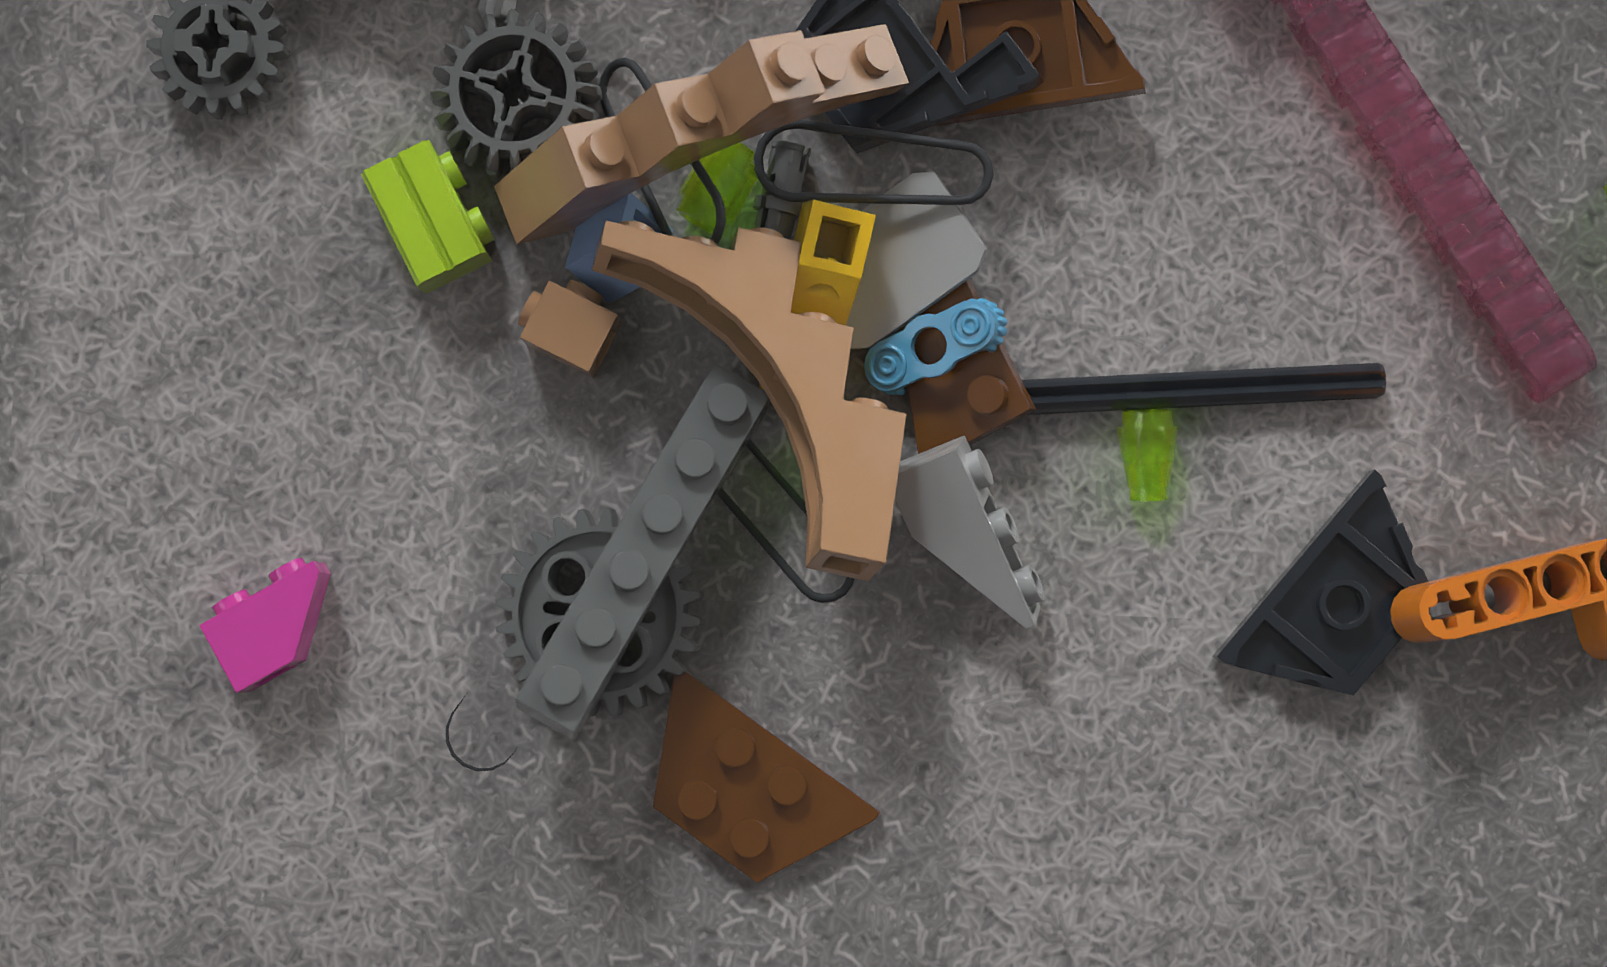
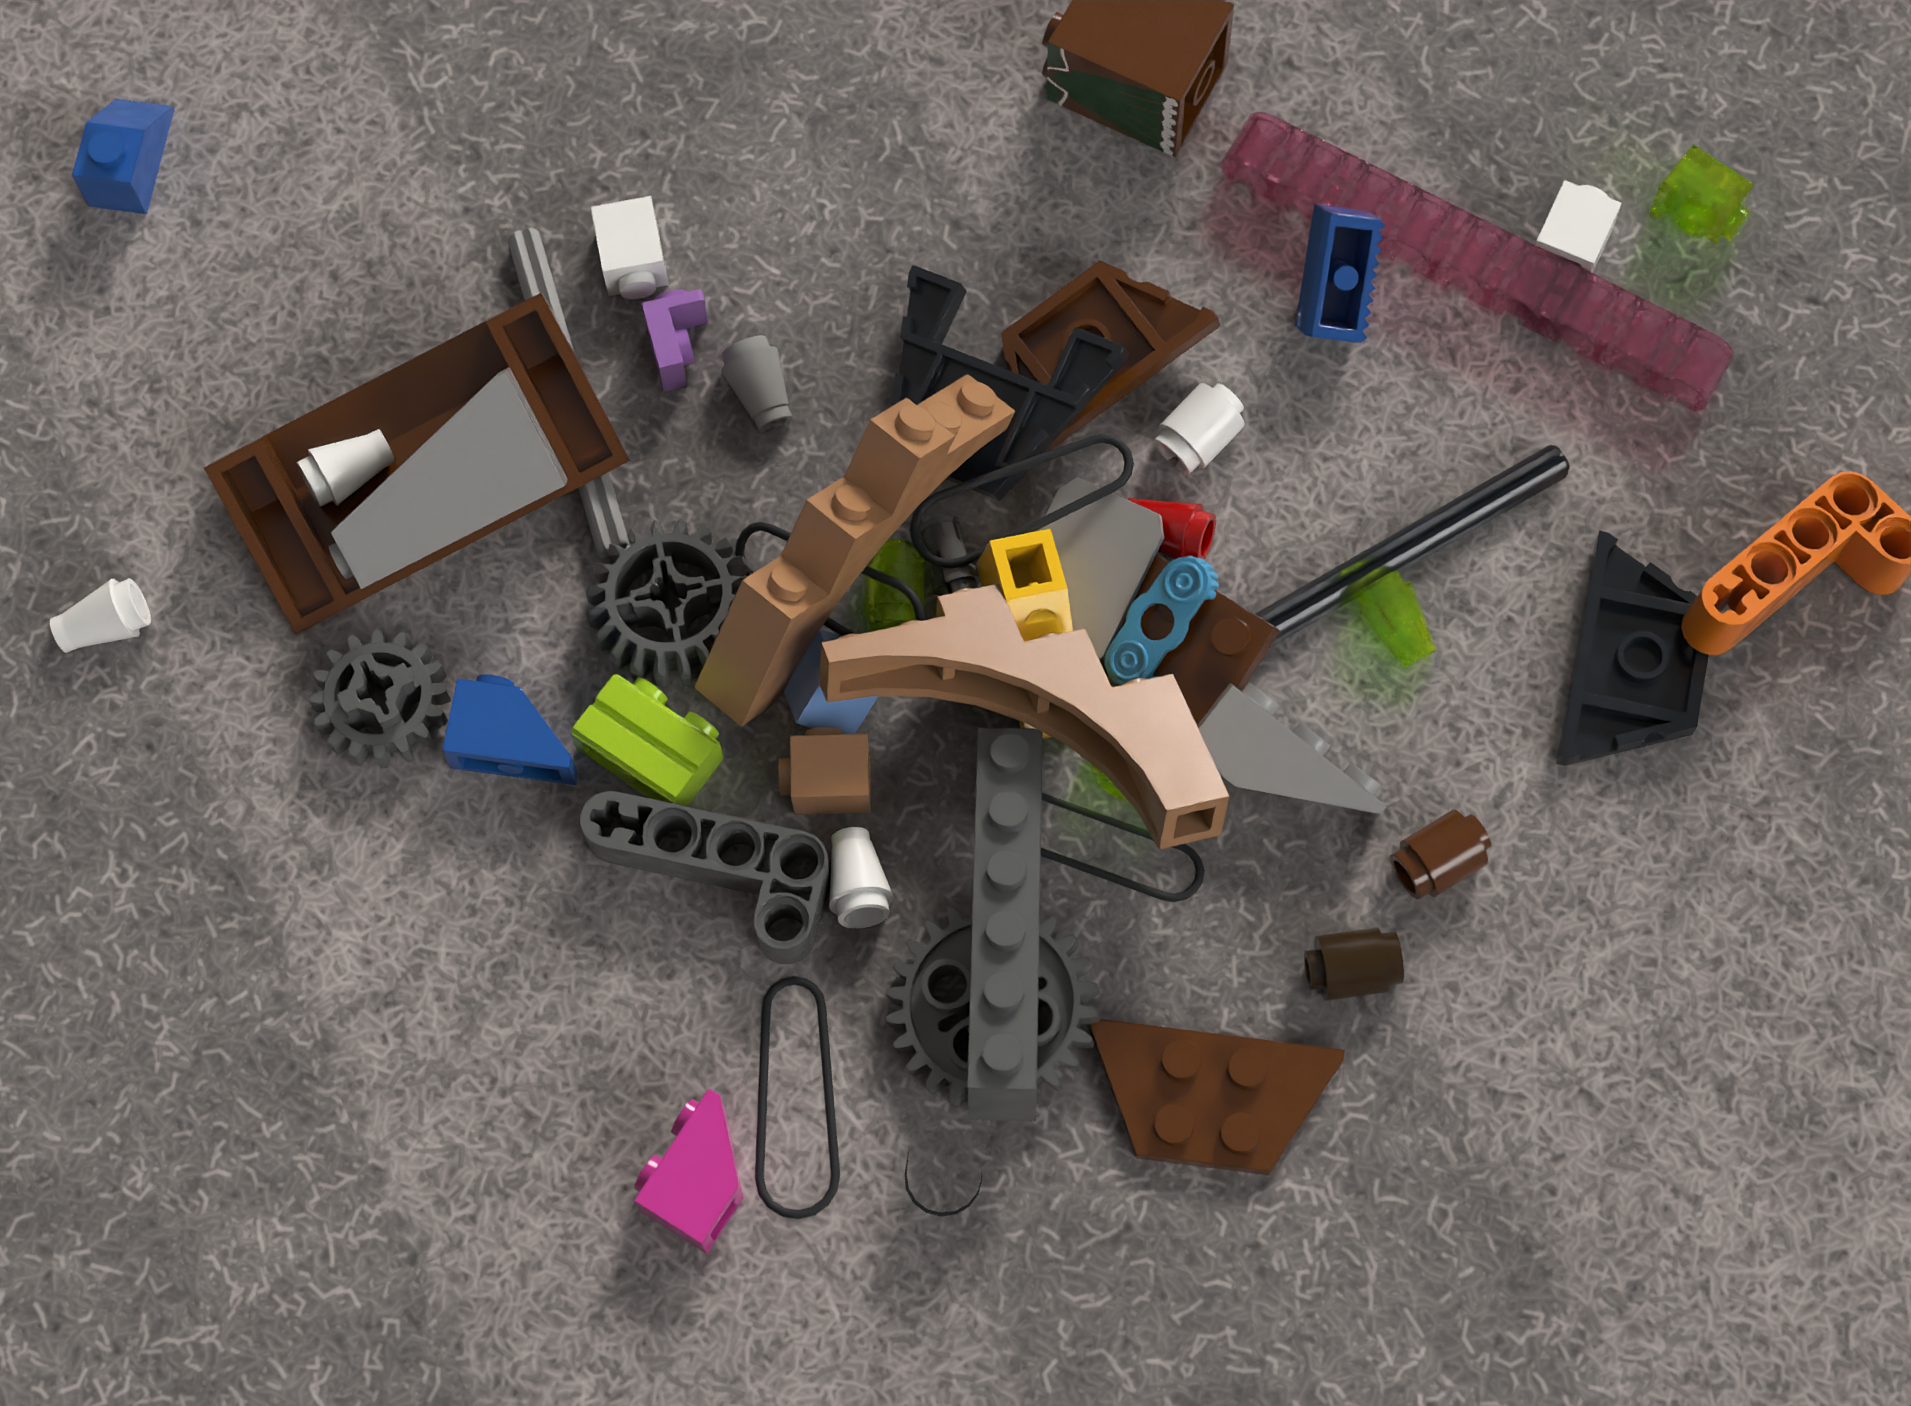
camera: 25 degrees left, 15 degrees down
(308, 137) = (502, 733): none -> blue slope
(324, 665) = (828, 1093): none -> black piece
(423, 347) = (702, 862): none -> dark grey beam
(545, 436) = (857, 880): none -> white cone
(931, 743) = (1354, 963): none -> dark brown brick
(1007, 265) = (1185, 527): none -> red cone
(1062, 687) = (1441, 854): none -> reddish brown brick
(1074, 179) = (1200, 427): none -> white brick
(1279, 104) = (1339, 273): none -> blue brick
(1528, 171) = (1579, 224): none -> white brick

